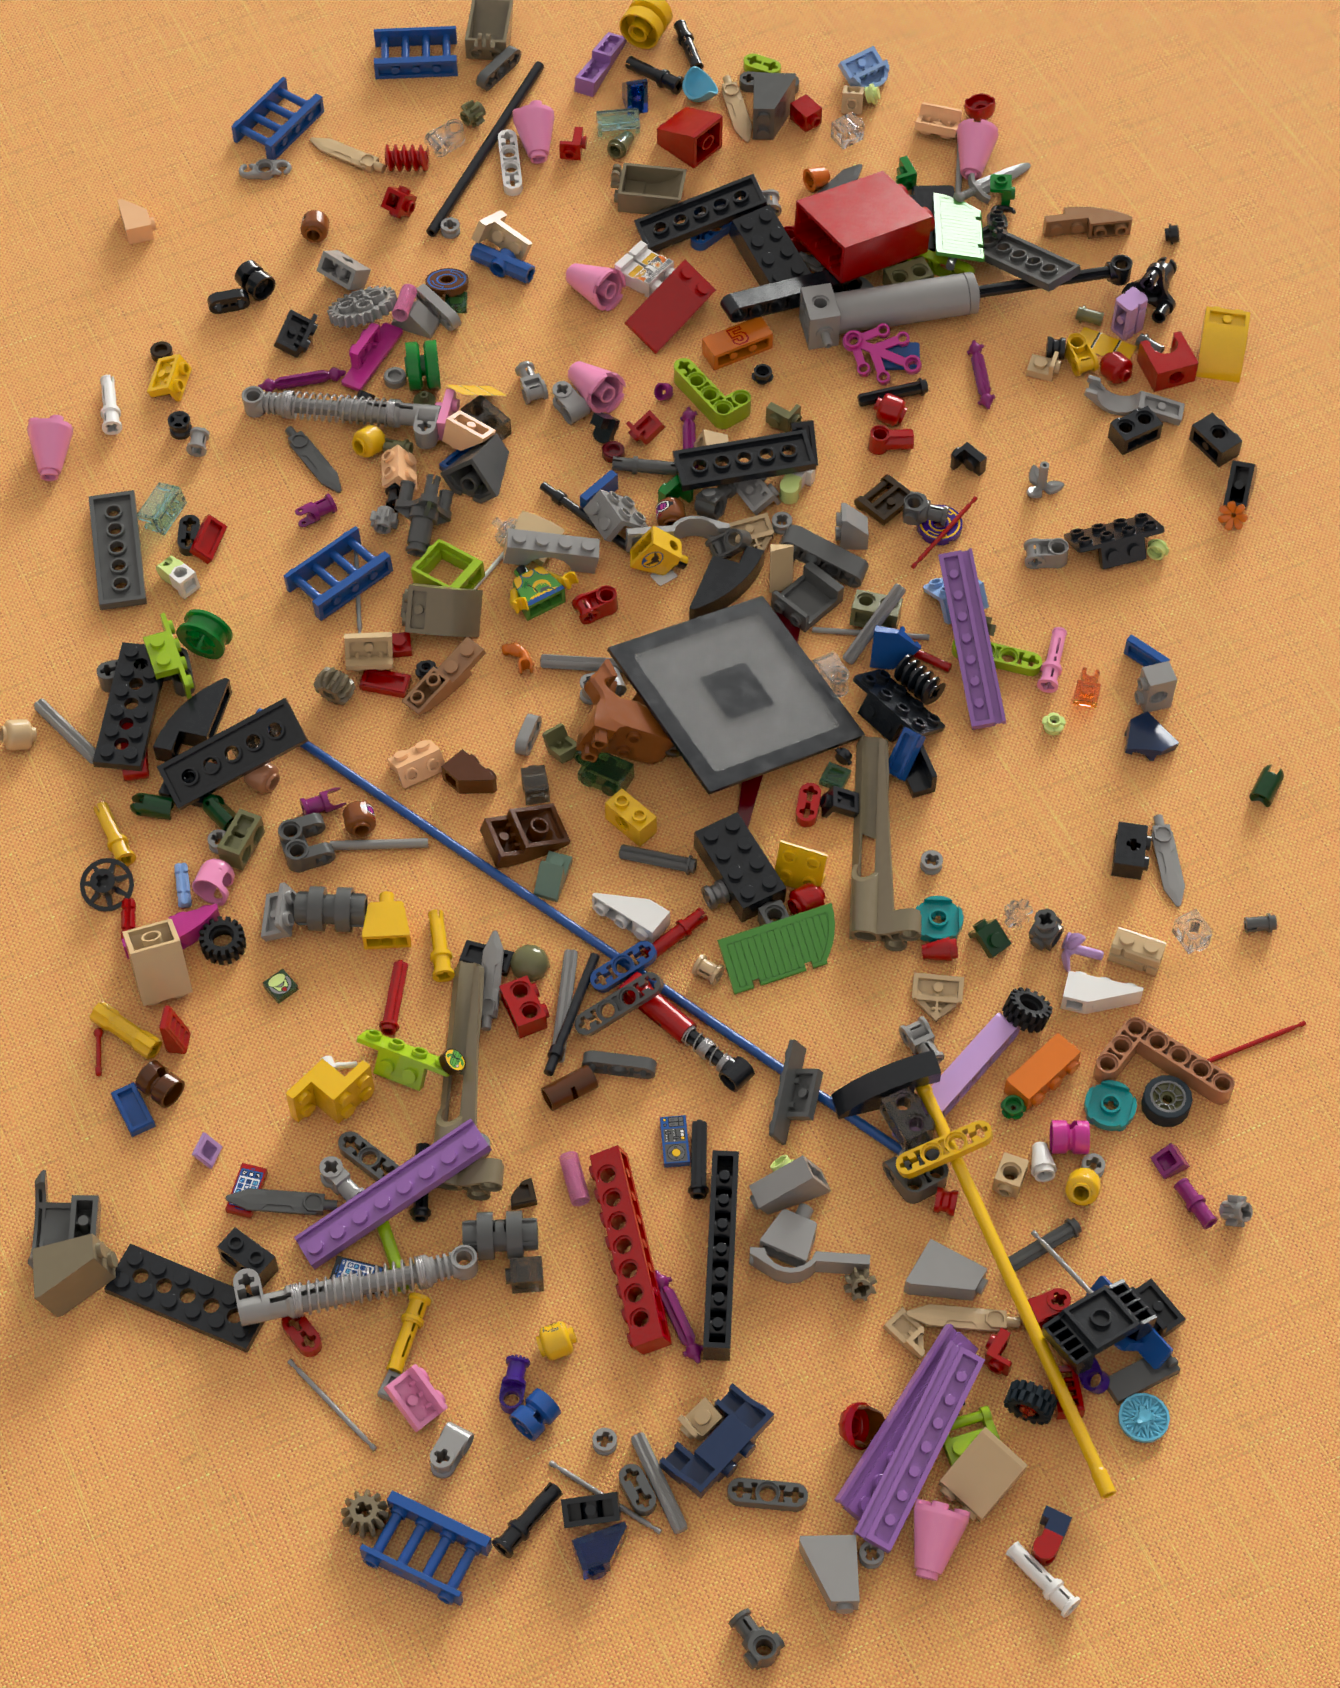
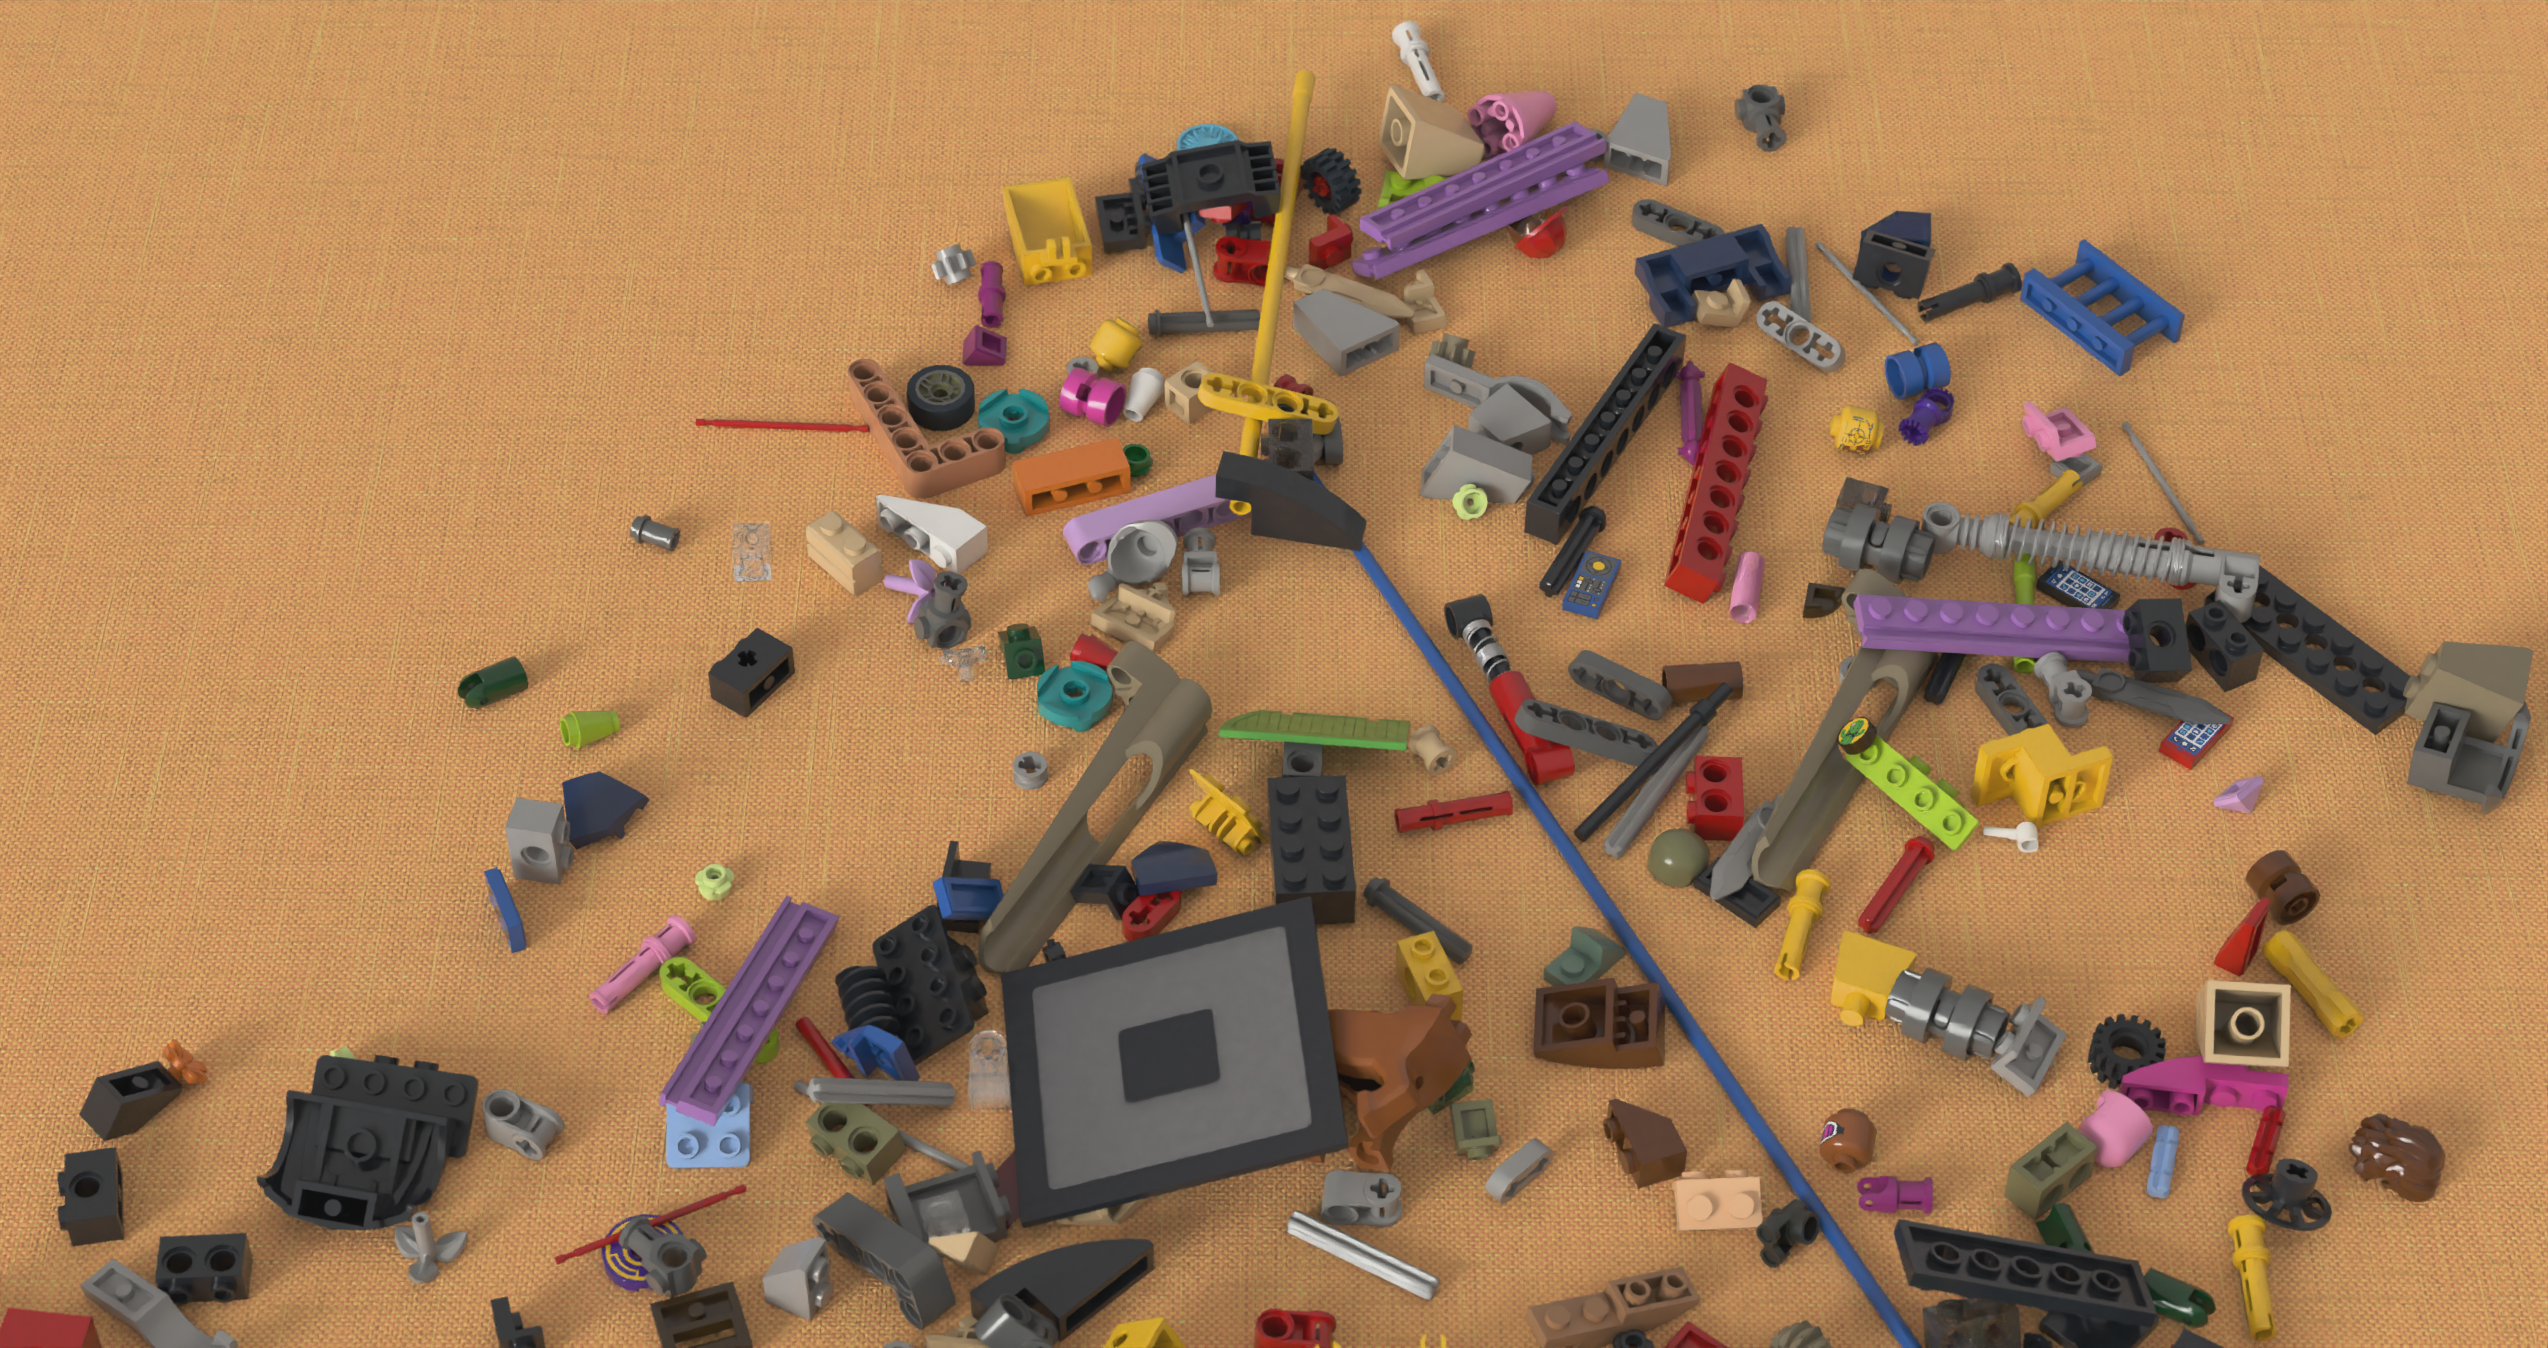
camera: 155 degrees left, 10 degrees down
(49, 935) = (2401, 1154): none -> reddish brown hair
(98, 1033) = (2361, 977): red hinge -> none
(133, 1109) = (2331, 879): blue tile -> none
(214, 836) = (2089, 1196): light grey bush -> none
(280, 986) = (2058, 965): tile -> none
(290, 1232) = (2166, 623): none -> black brick
(311, 856) = (1965, 1137): dark grey piece -> none
(356, 1520) = (2163, 358): dark tan gear -> none
(371, 761) = (1785, 1228): none -> pearl dark grey plate
(380, 844) = (1822, 1105): light grey bar -> none
(451, 1446) = (2035, 378): light grey piece -> none
(517, 650) = (1465, 1317): orange piece -> none
(535, 784) = (1548, 1087): clear smoke brick -> none
(604, 969) = (1527, 787): blue beam -> none
(610, 1447) = (1845, 331): light grey bush -> none
(637, 915) = (1492, 851): white slope -> none
(641, 1419) = (1806, 350): none -> light grey beam
(642, 1487) = (1821, 281): dark grey beam -> none
(715, 894) = (1365, 836): flat silver wheel -> none
(796, 1093) = (1401, 554): dark grey bracket -> none
(801, 585) = (943, 1215): none -> clear bracket
(806, 898) = (1243, 774): red head -> none
(811, 827) = (1172, 867): none -> dark blue slope
(835, 775) = (1085, 934): clear green tile -> none
(965, 1023) = (1135, 556): none -> light grey piece
(1027, 1010) = (1052, 547): black tyre -> none
(1048, 1544) = (1377, 86): leg -> none
(1087, 689) = (625, 908): clear orange plate -> none
(1105, 492) = (356, 1162): none -> black piece
(1168, 860) = (705, 652): light grey piece -> none
(1192, 1264) = (1047, 231): none -> yellow piece
(1193, 779) = (586, 727): none -> lime cone

